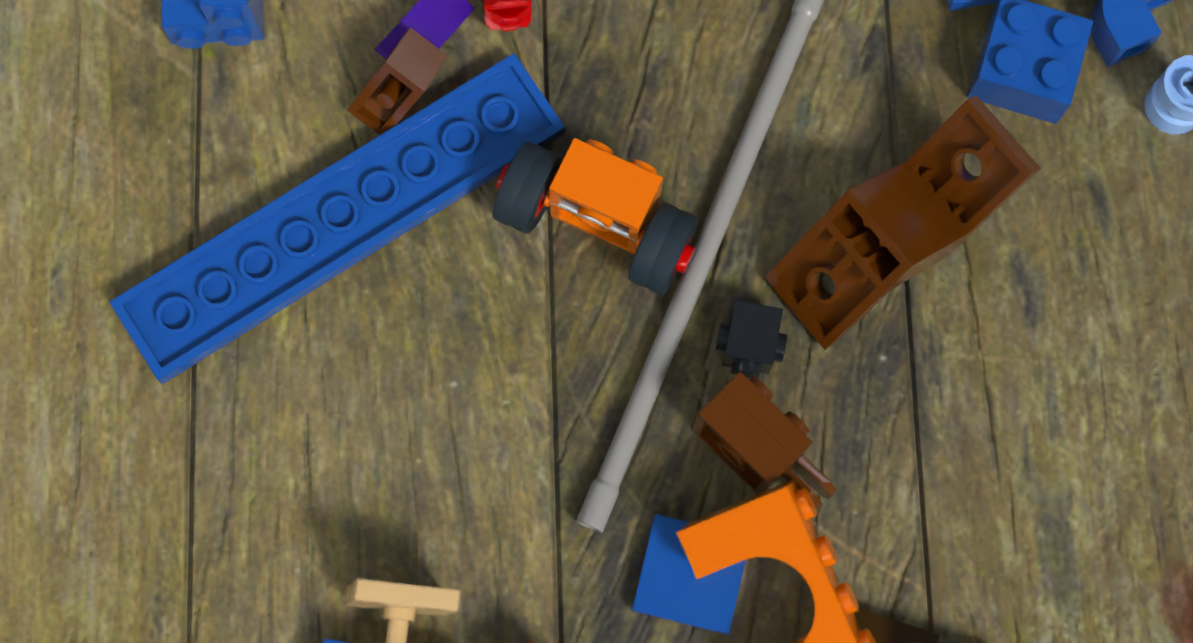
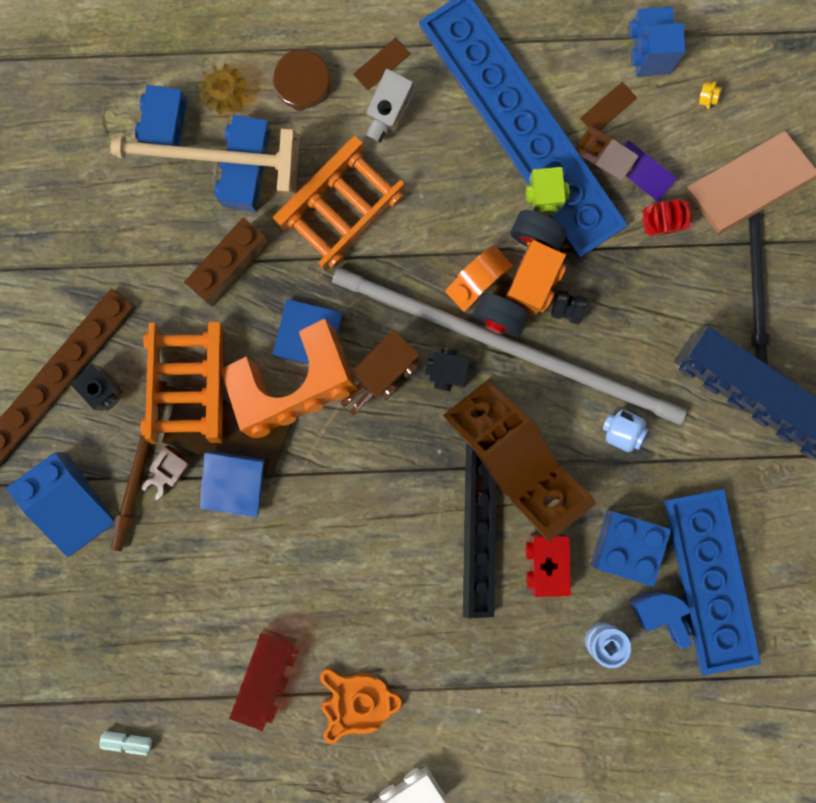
camera: 90 degrees right, 10 degrees up
(223, 449) = (387, 58): none -> reddish brown sticker
(247, 584) = (301, 79): none -> reddish brown tile
(288, 414) = (394, 94): none -> light grey torso
(314, 82) = (609, 107): none -> reddish brown sticker
(458, 563) = (311, 196): none -> orange fence
(459, 172) = (547, 190): none -> lime brick
(600, 284) = (478, 277): none -> orange brick
(648, 141) = (569, 307): none -> black wheel
(845, 62) = (625, 430): none -> light blue head
(1026, 291) = (479, 539): none -> black plate
(1085, 170) = (557, 579): none -> red brick

